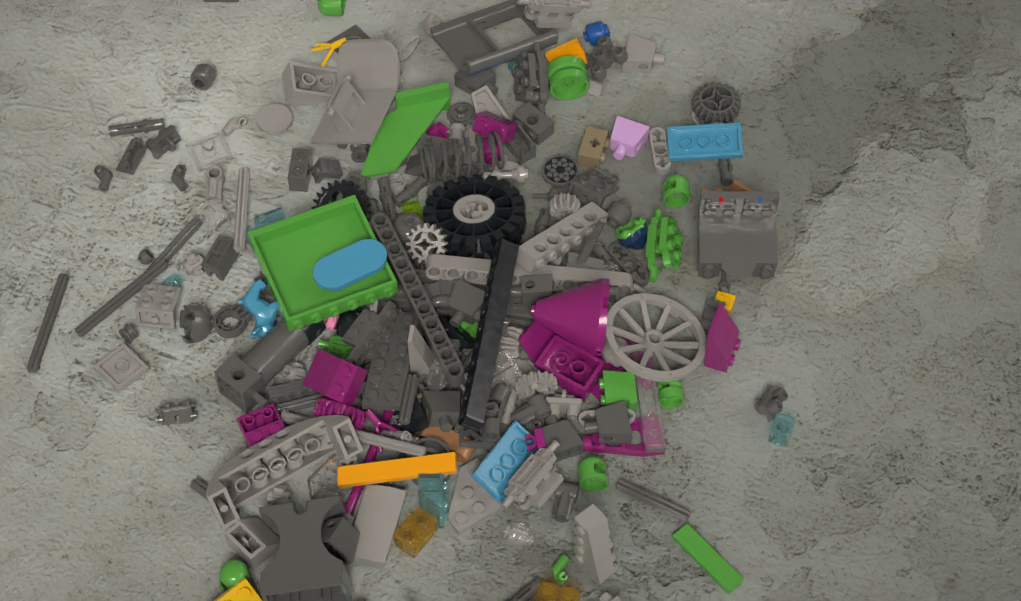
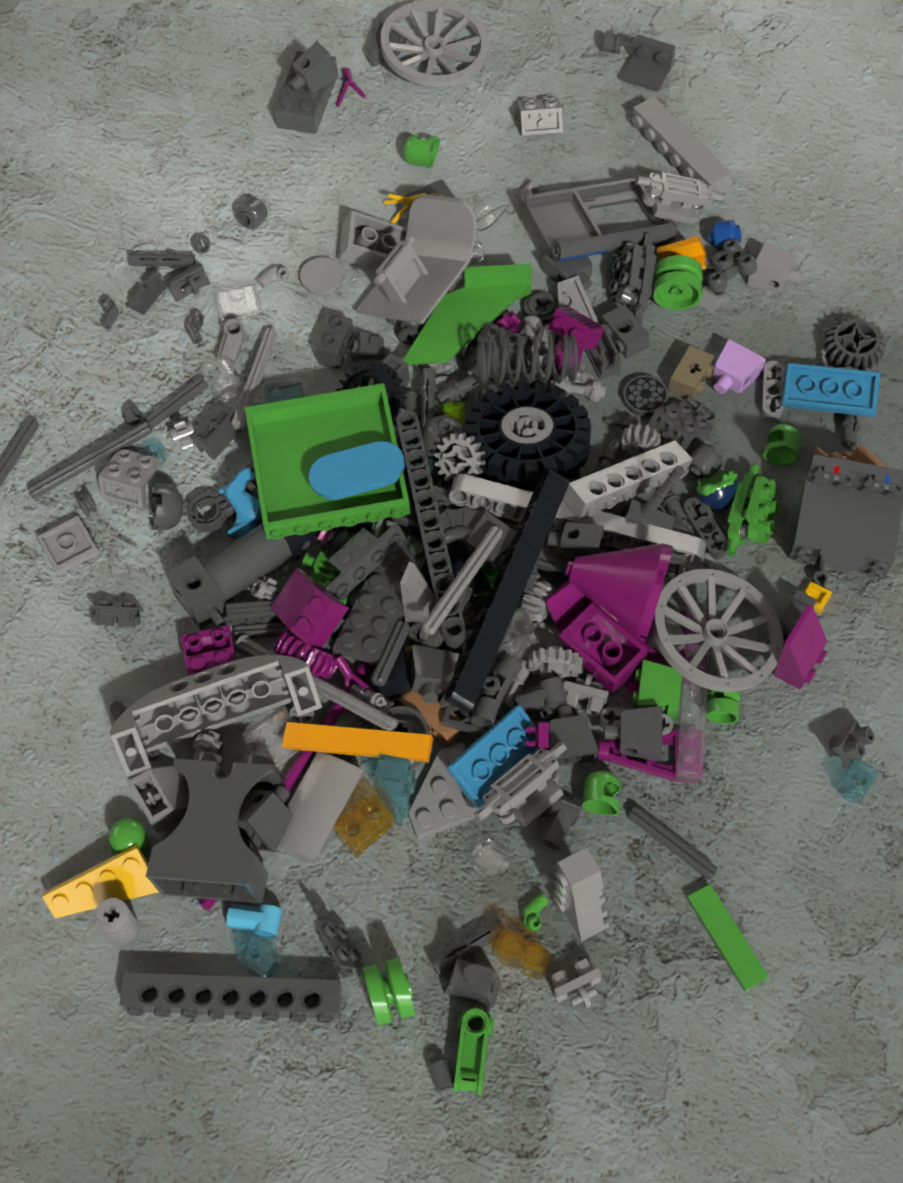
camera: 15 degrees right, 5 degrees up
(162, 109) = (198, 246): none -> dark grey hinge
(453, 332) = (462, 580): none -> light grey axle

